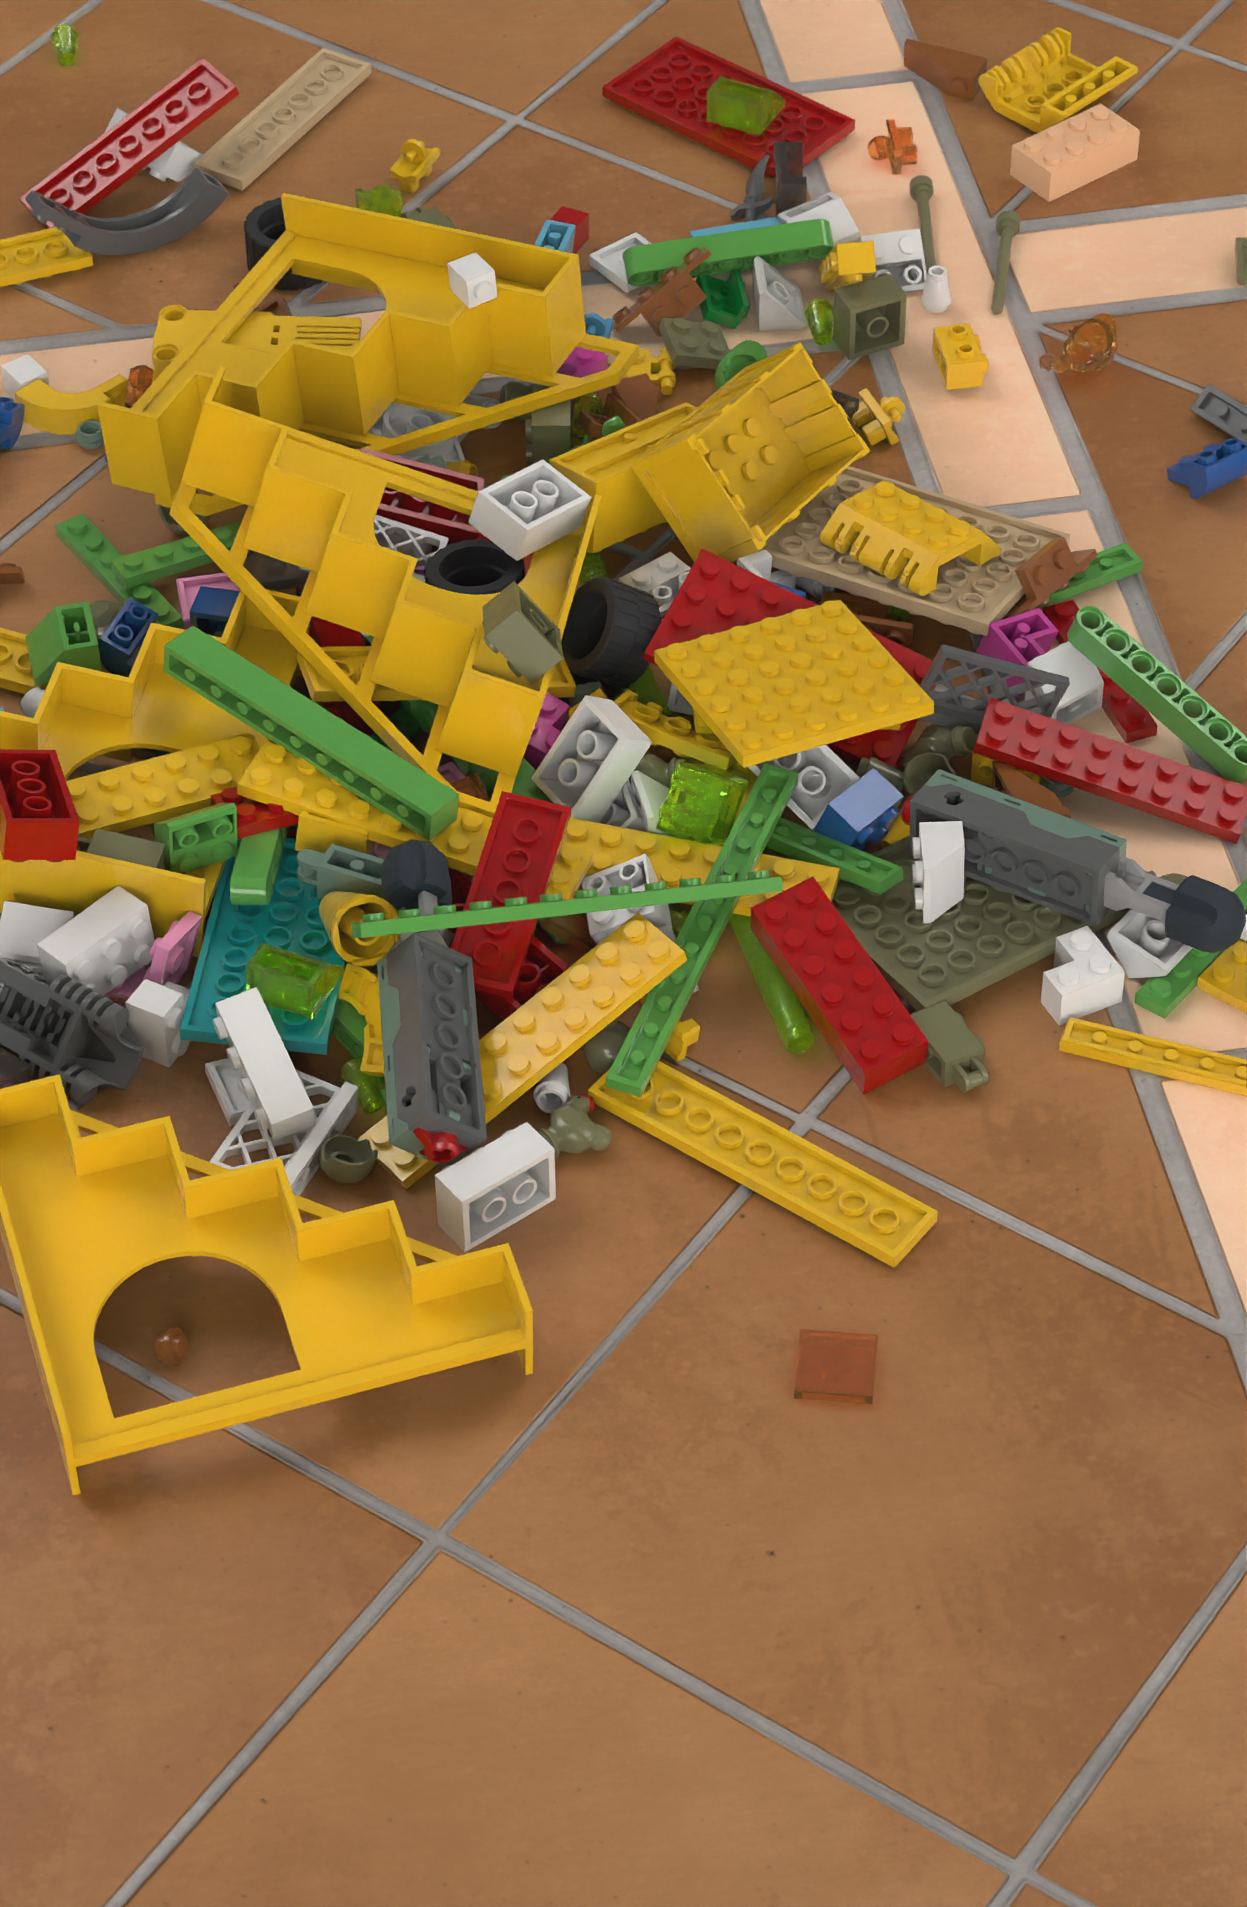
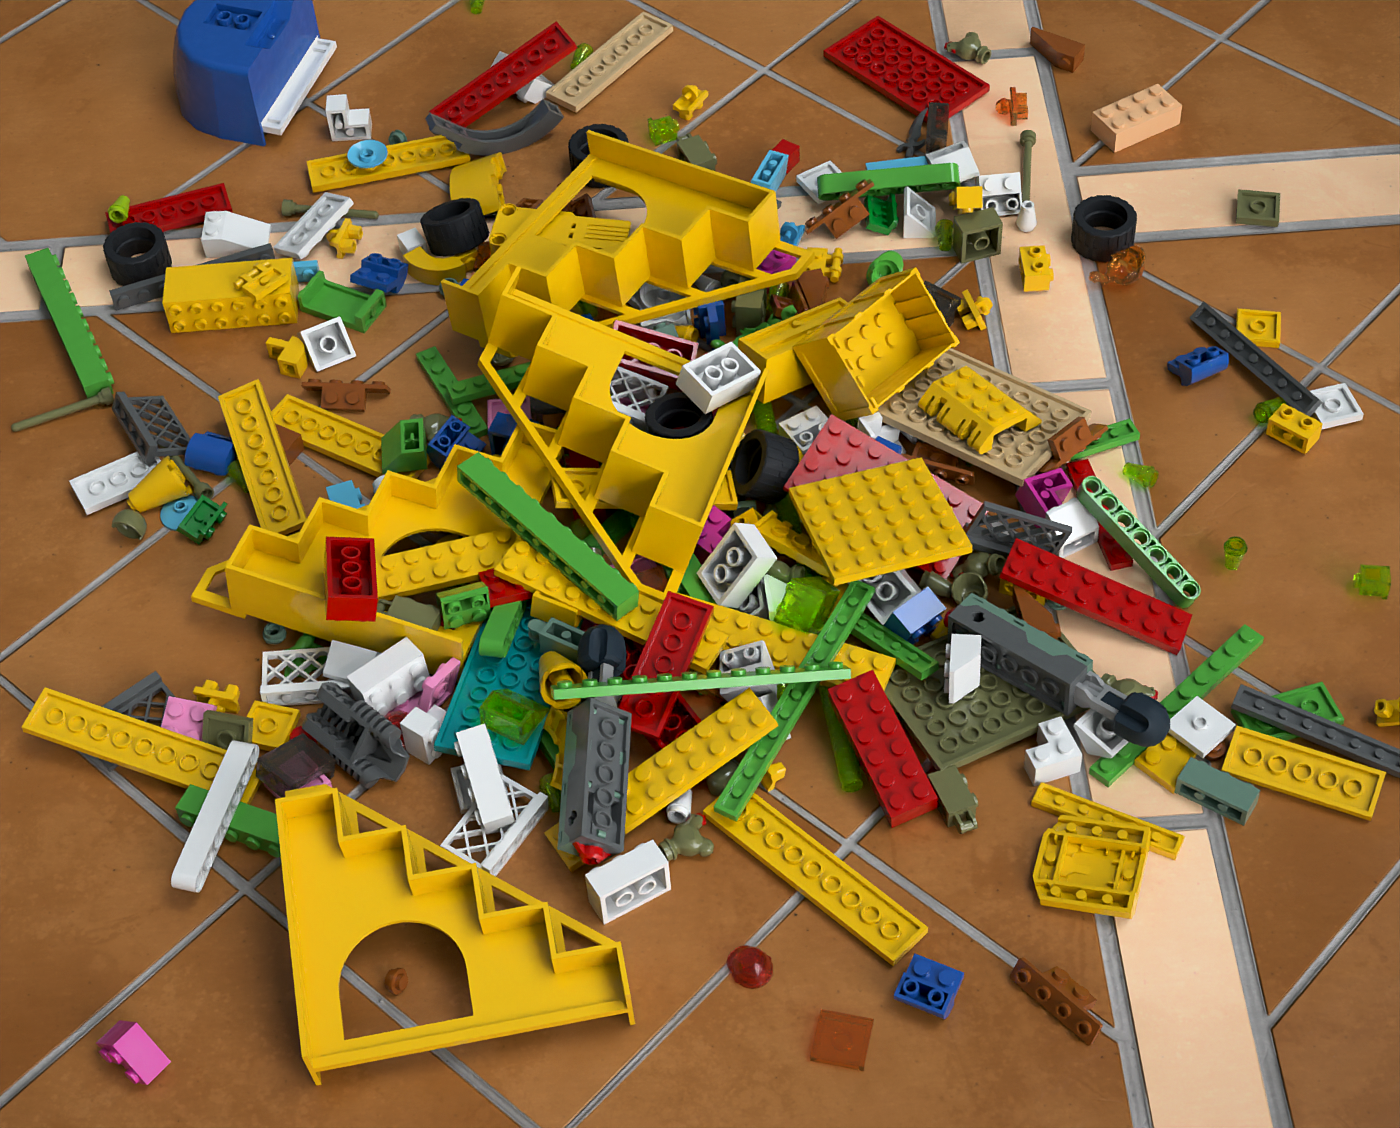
camera: 10 degrees right, 5 degrees up
(89, 348) = (454, 227): none -> black tyre
(111, 299) = (480, 181): none -> yellow panel
(238, 110) = (581, 53): none -> clear neon green cone
(346, 1159) = (533, 848): olive hair -> none
(472, 280) = (700, 207): white brick -> none
(493, 450) = (710, 321): none -> blue brick
(521, 633) = (693, 478): olive brick -> none
(688, 1285) = (750, 966): none -> clear red hat
(693, 342) = (857, 245): olive plate -> none
(742, 105) = (913, 72): clear neon green slope -> none
(818, 74) = (969, 48): none -> olive animal
(951, 1284) = (929, 986): none -> blue brick
(1007, 227) = (1082, 171): olive piece -> none
(1048, 82) = (1126, 64): yellow slope -> none
(1048, 296) = (1103, 212): none -> black tyre
(1138, 1284) = (1059, 996): none -> dark orange bracket
(1153, 614) = (1142, 474): none -> clear neon green cone
(1158, 1114) = (1092, 866): none -> yellow wedge

